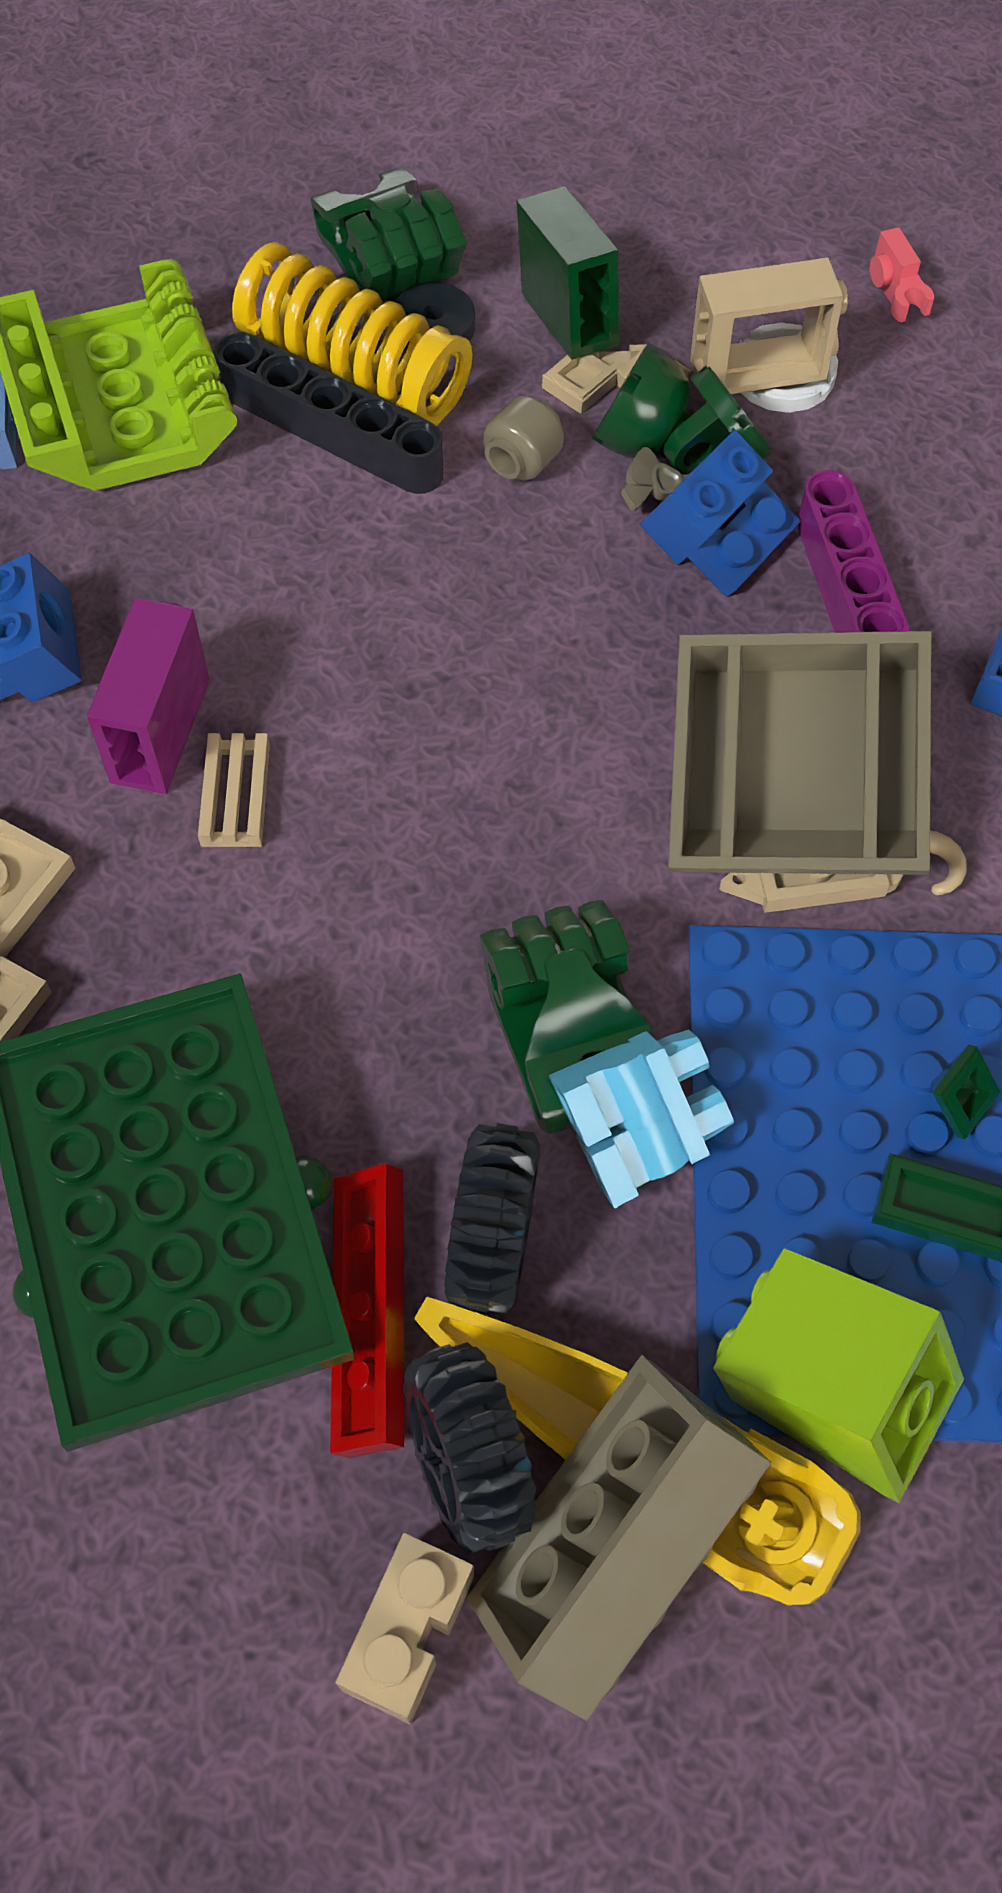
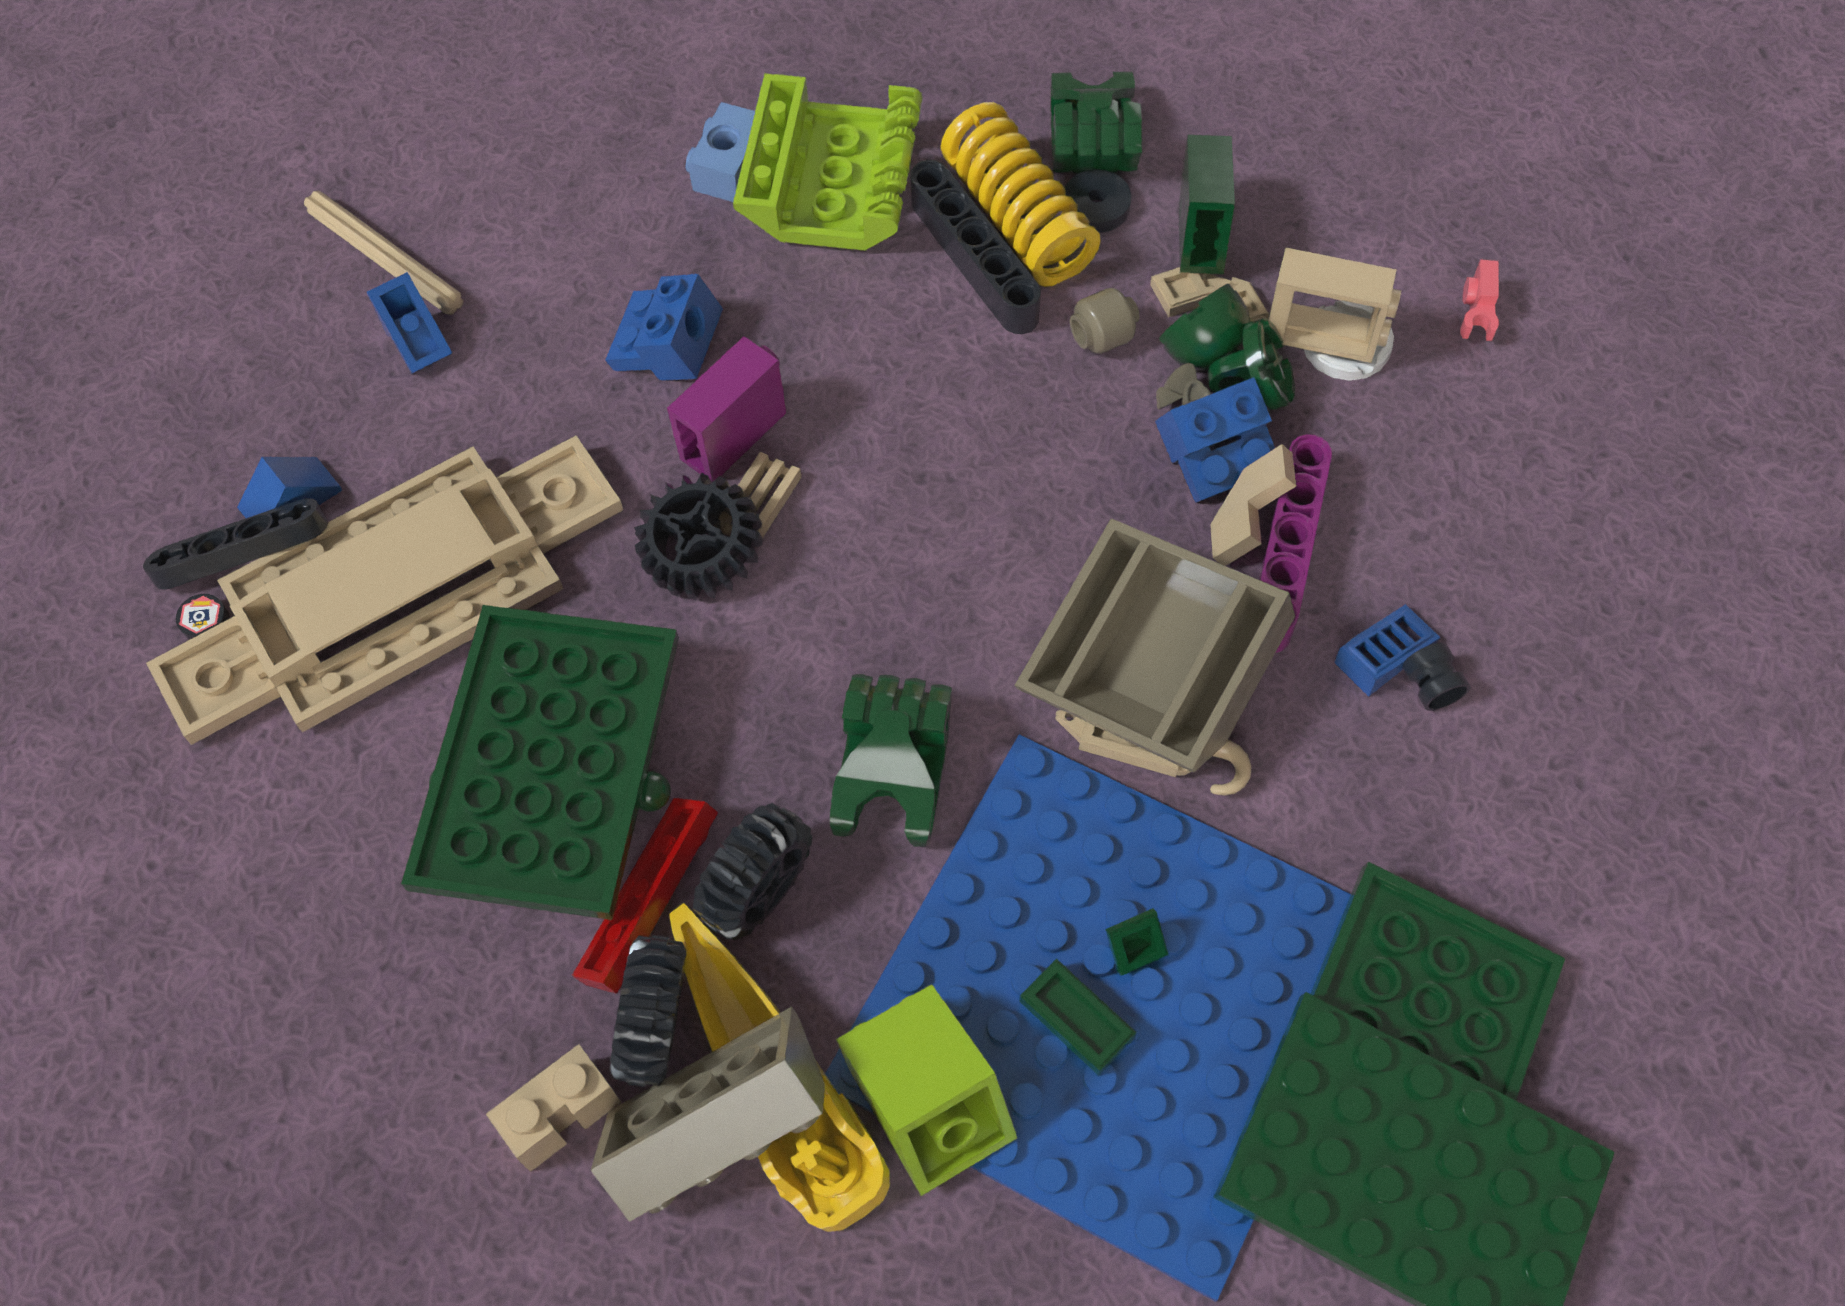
camera: 30 degrees right, 0 degrees up
(146, 854) = (708, 557): none -> black gear
(635, 1113) = (889, 846): medium azure hips -> none
(789, 594) = (1237, 524): none -> tan tile

